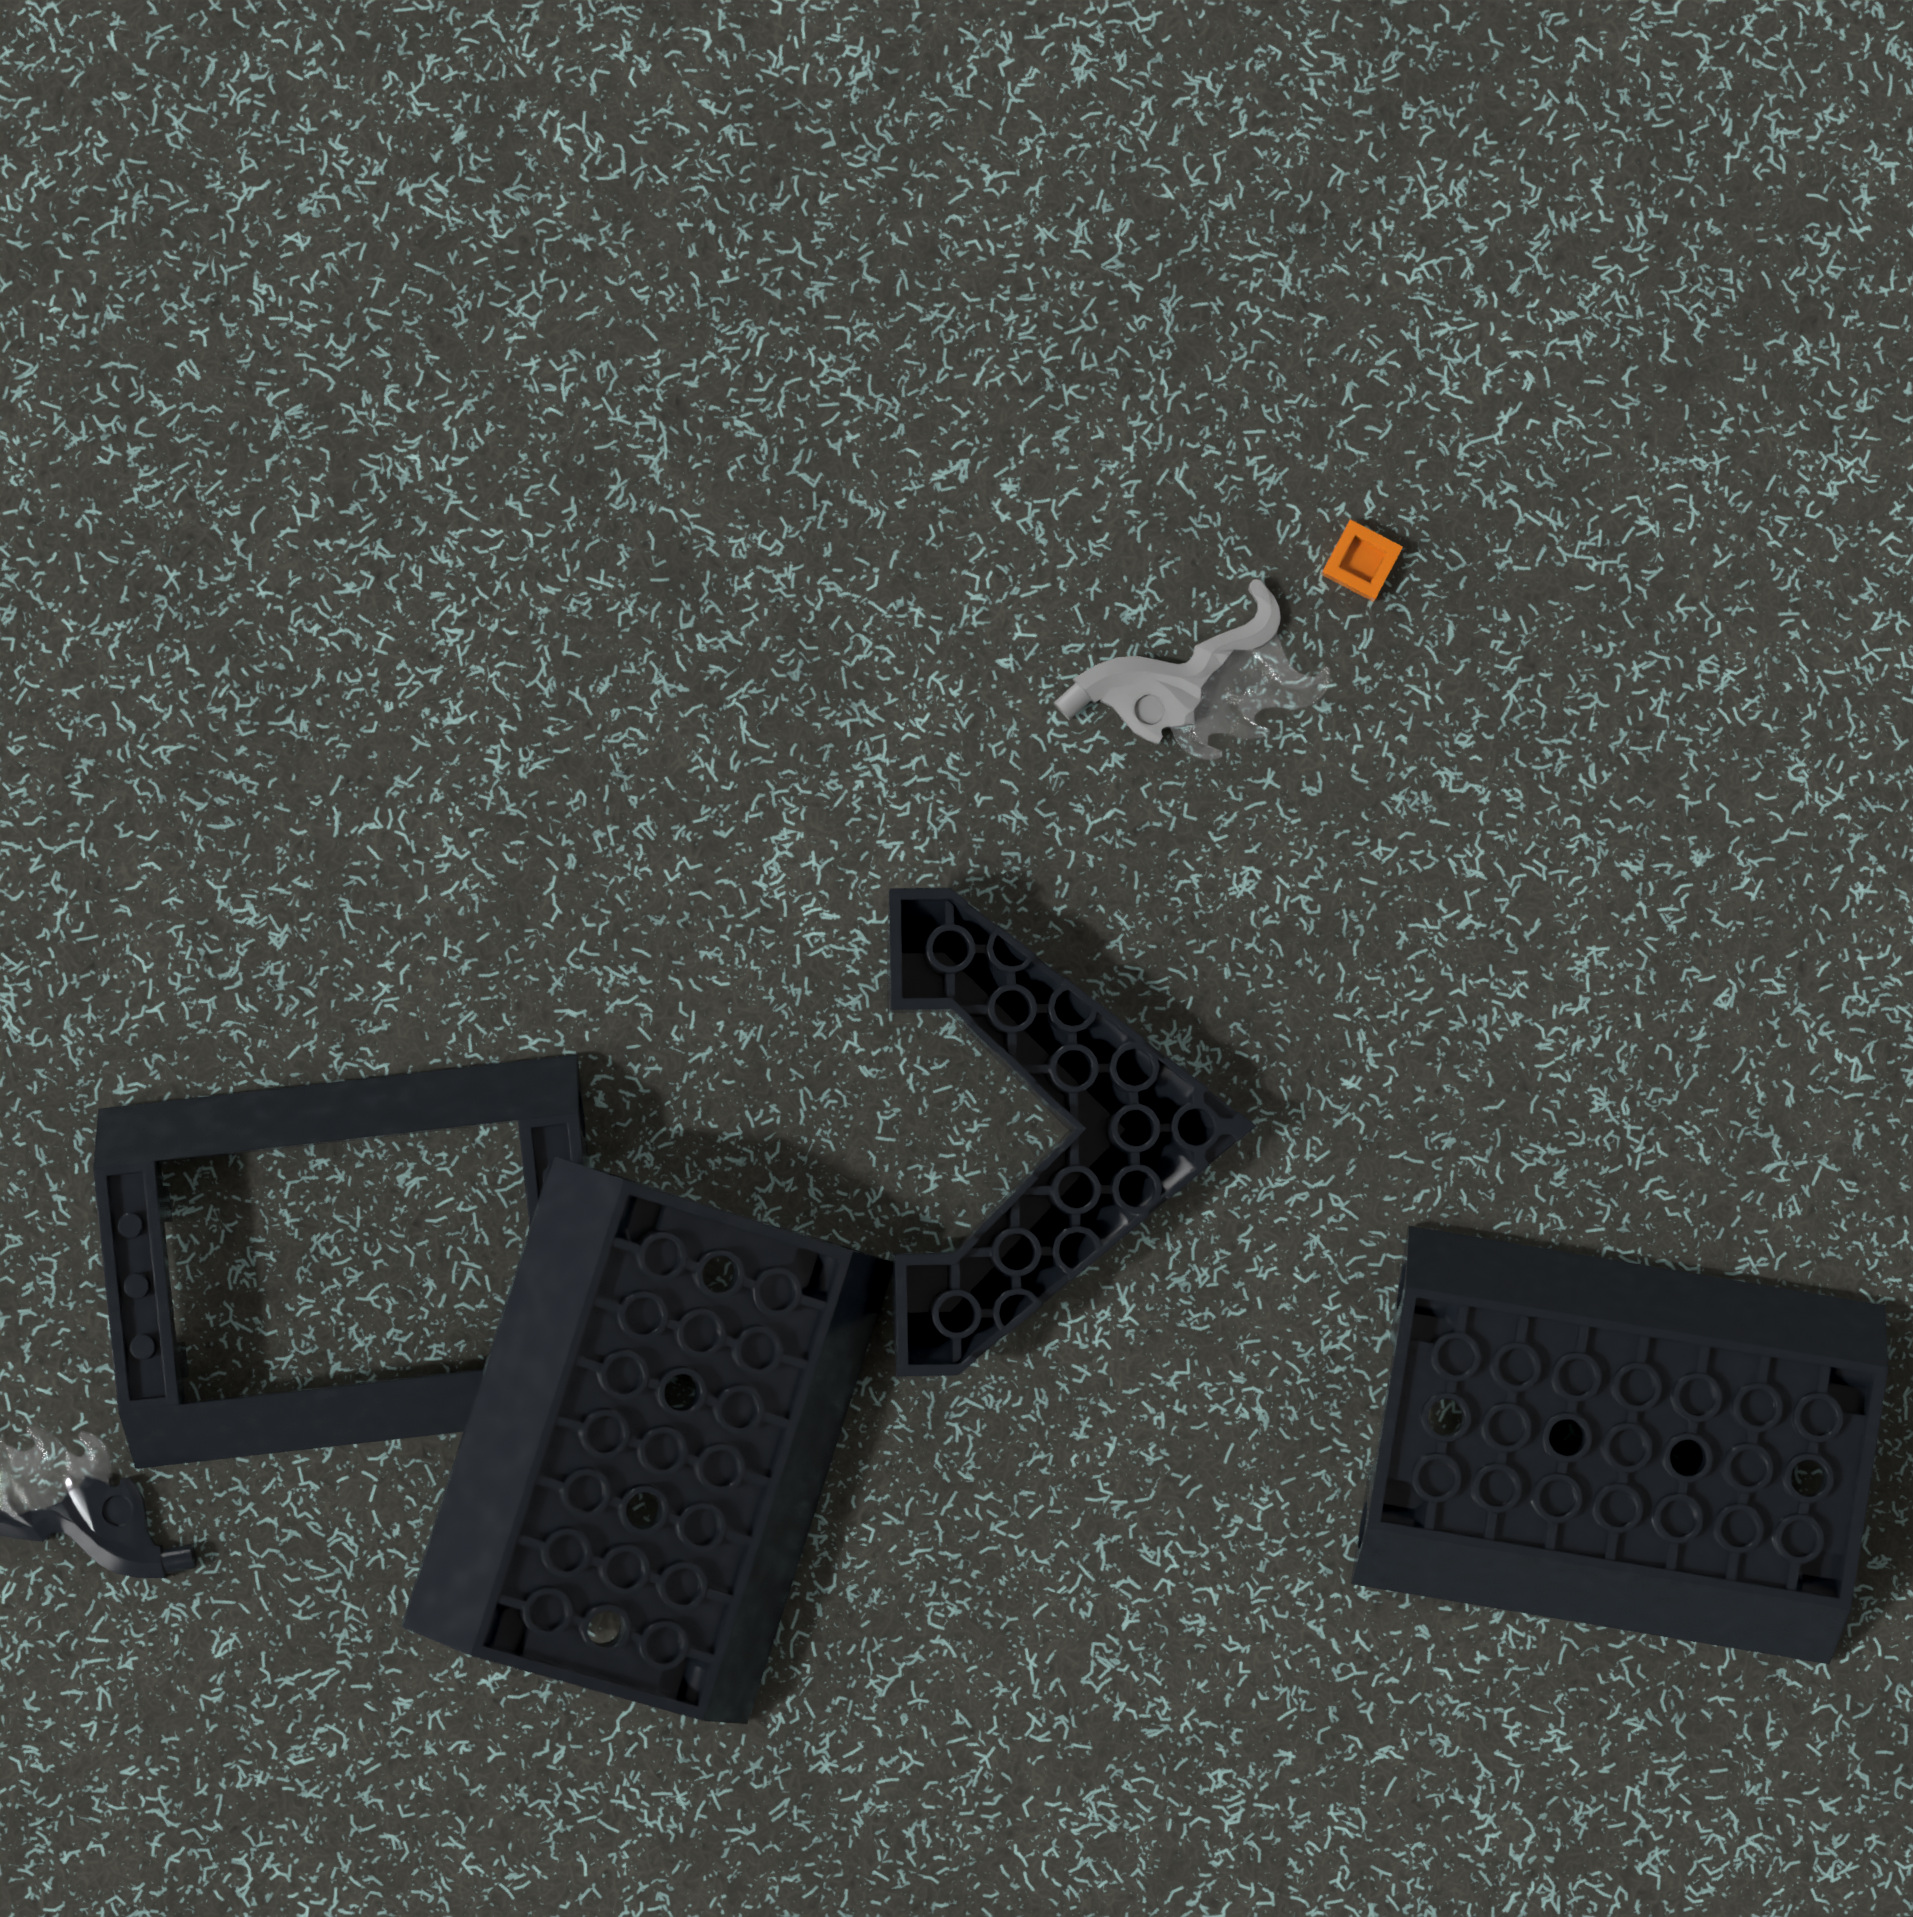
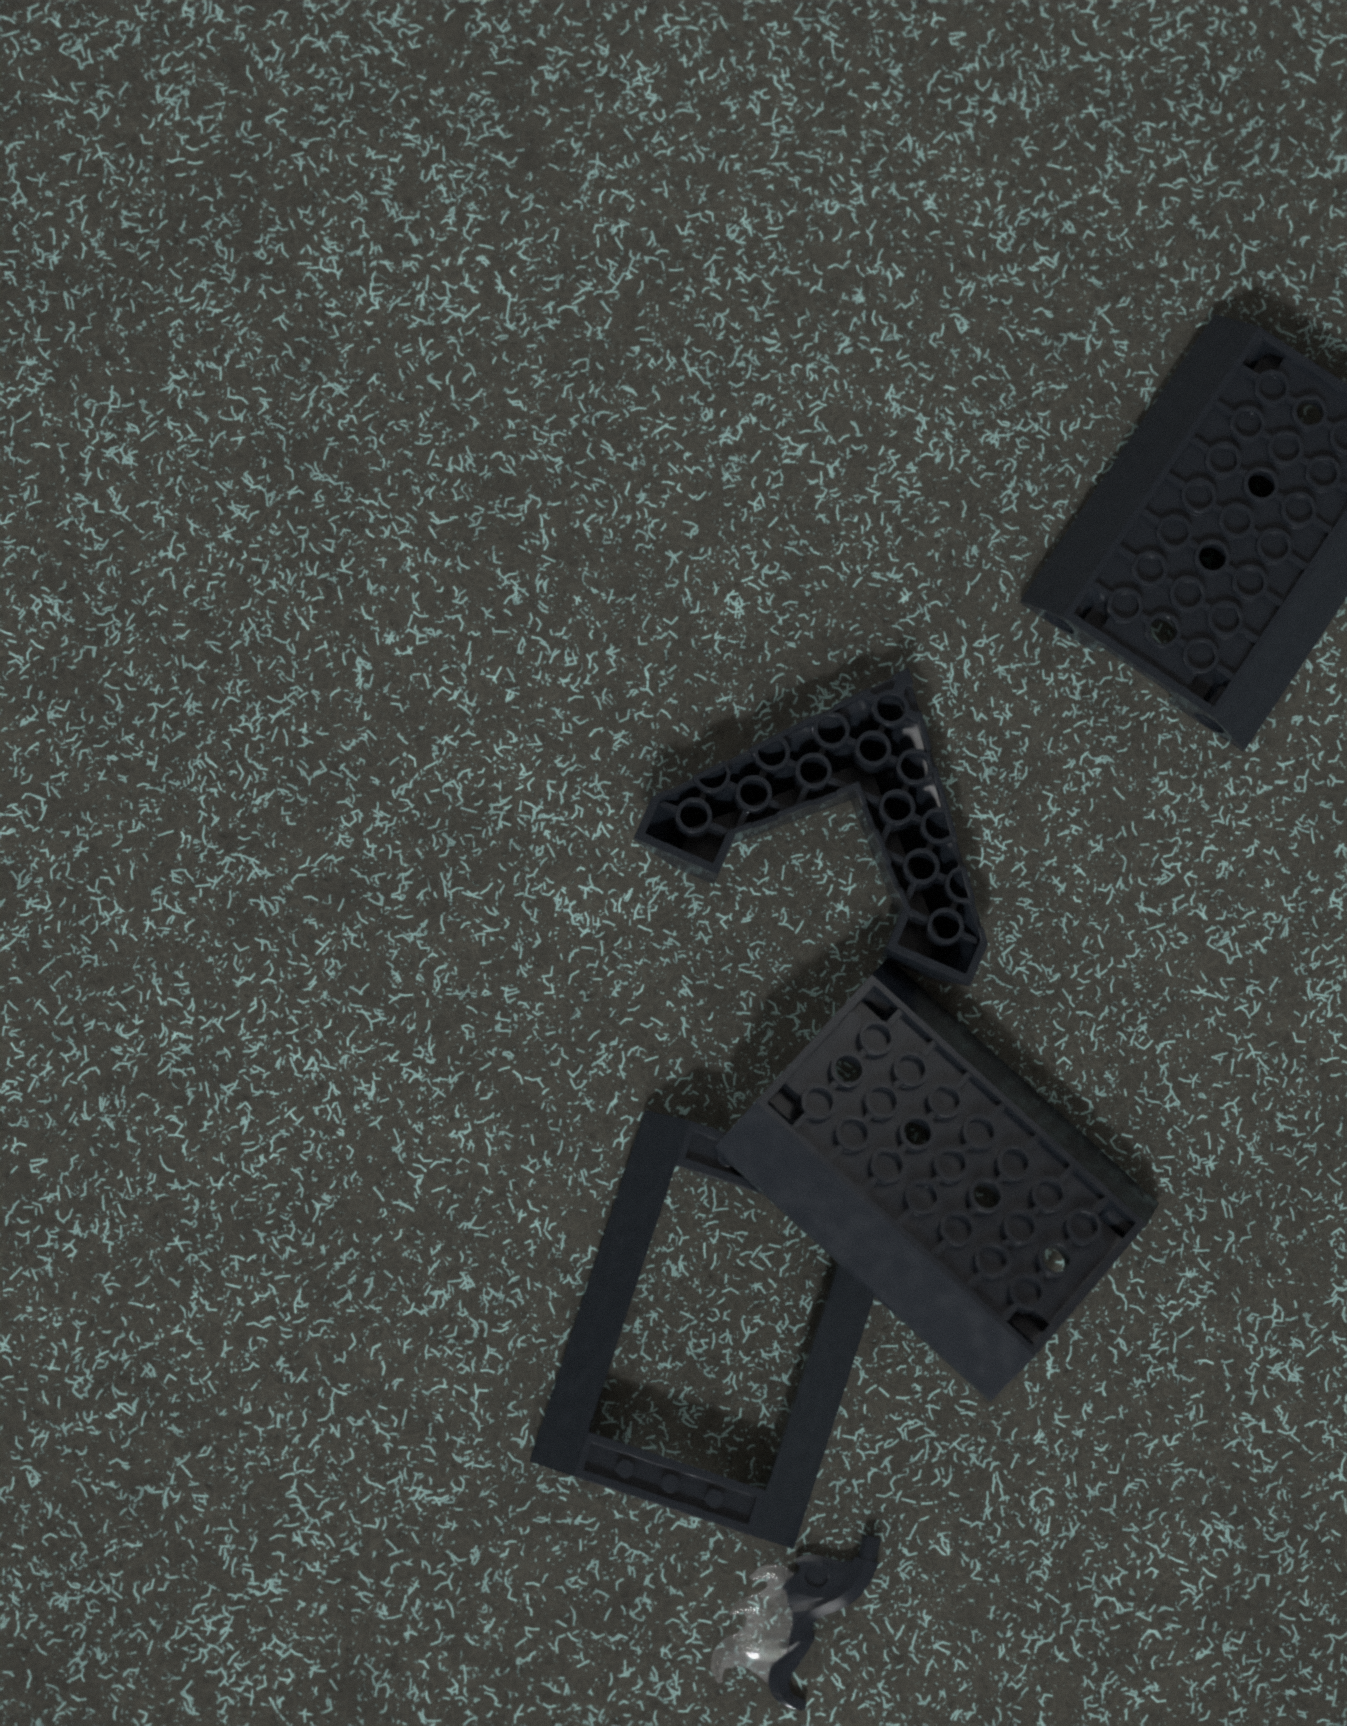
camera: 75 degrees left, 5 degrees down
(1209, 694) = (596, 566): piece -> none
(1361, 560) = (553, 425): orange tile -> none

